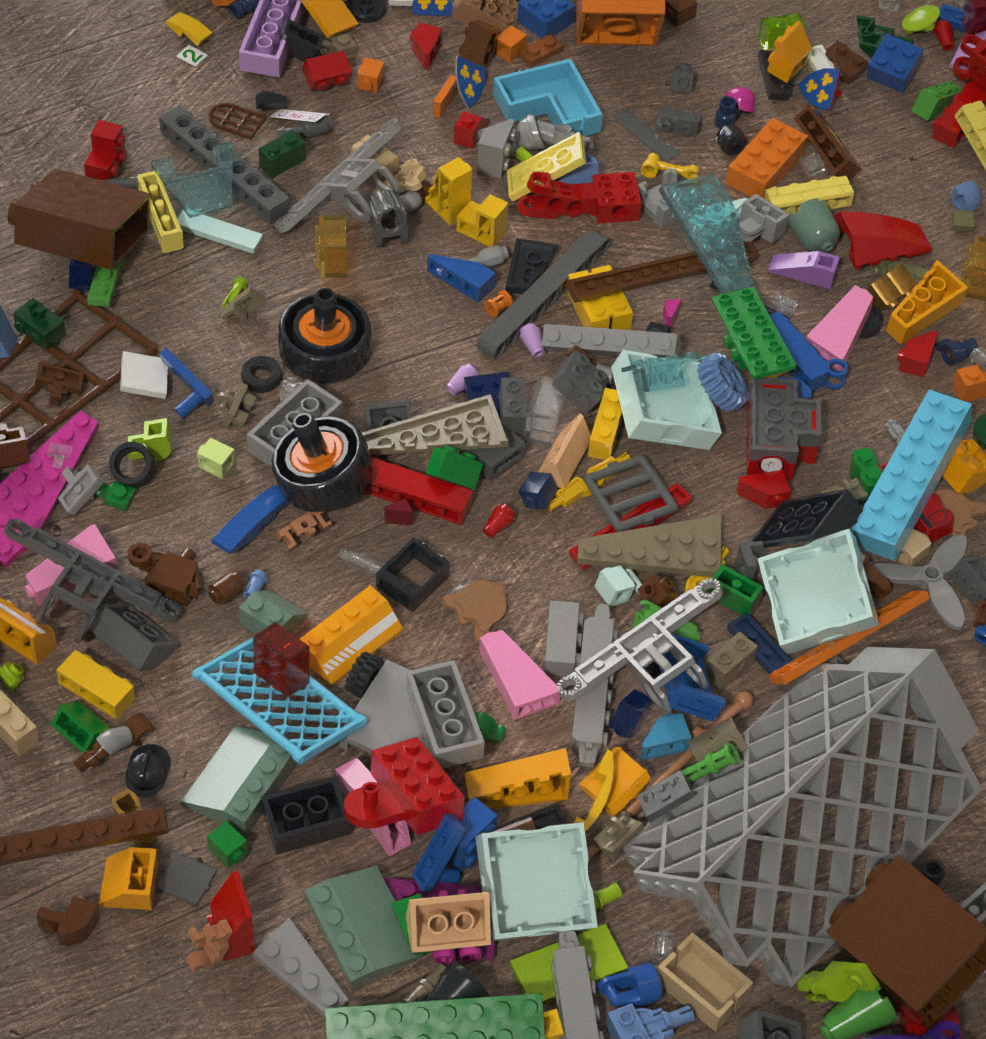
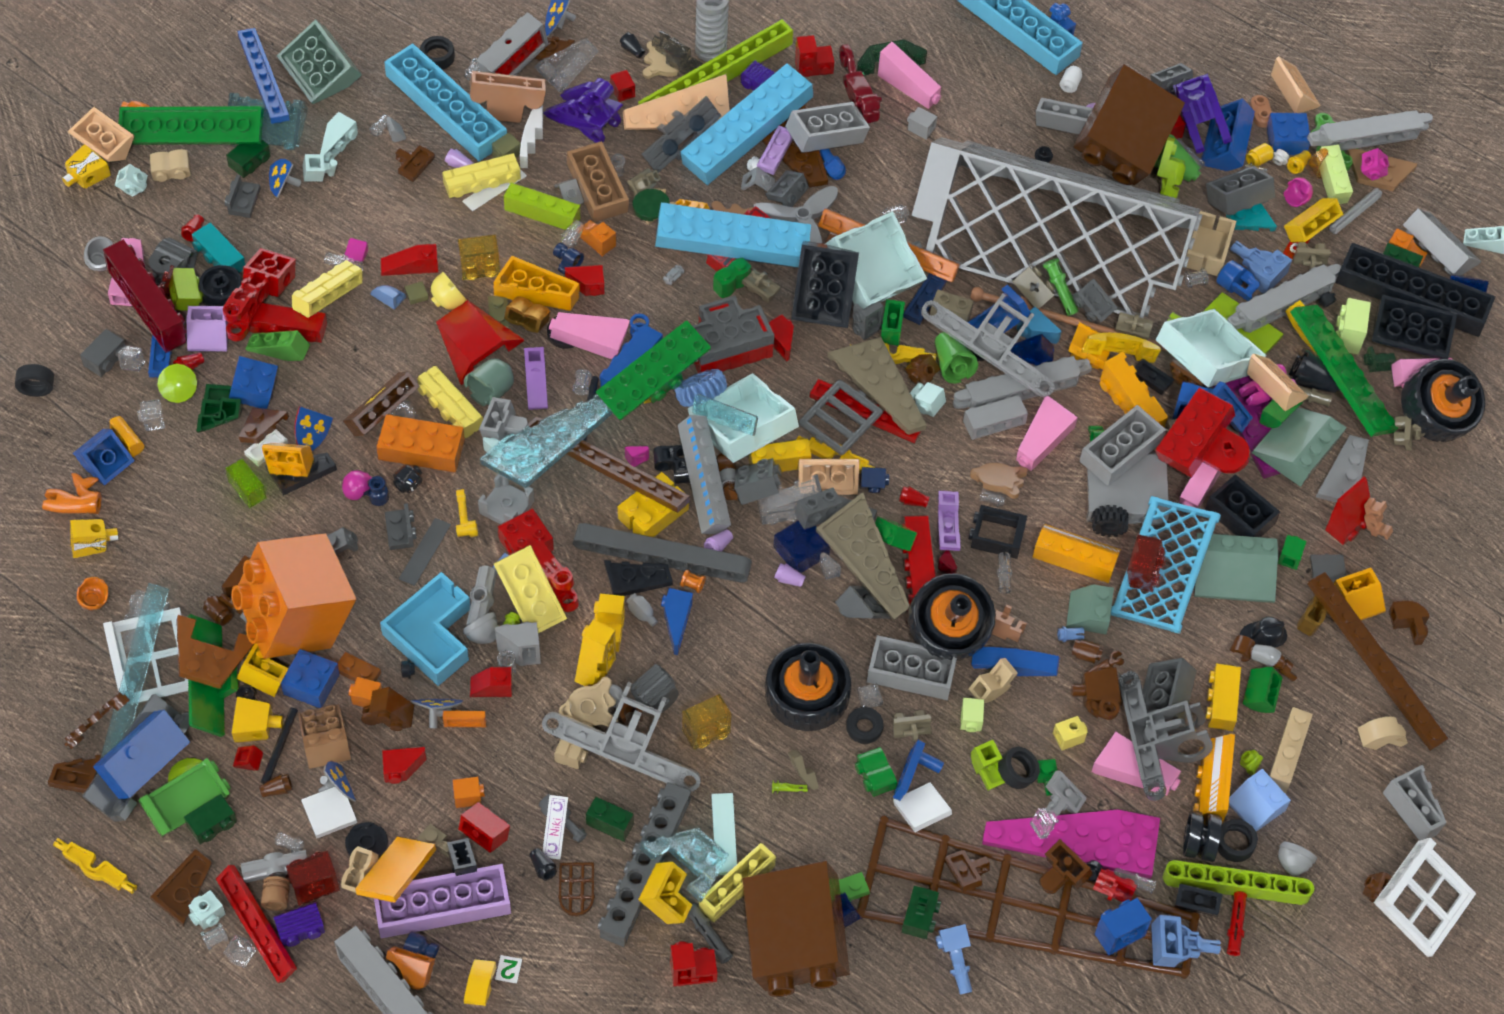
camera: 115 degrees left, 5 degrees up
(144, 527) = (1070, 733): none -> light yellow brick
(182, 150) = (662, 893): none -> yellow brick
(205, 358) = (876, 772): none -> green brick
(237, 487) = (994, 684): none -> tan brick
(445, 536) = (948, 520): none -> medium lavender slope
(948, 235) = (446, 293): none -> light yellow cylinder

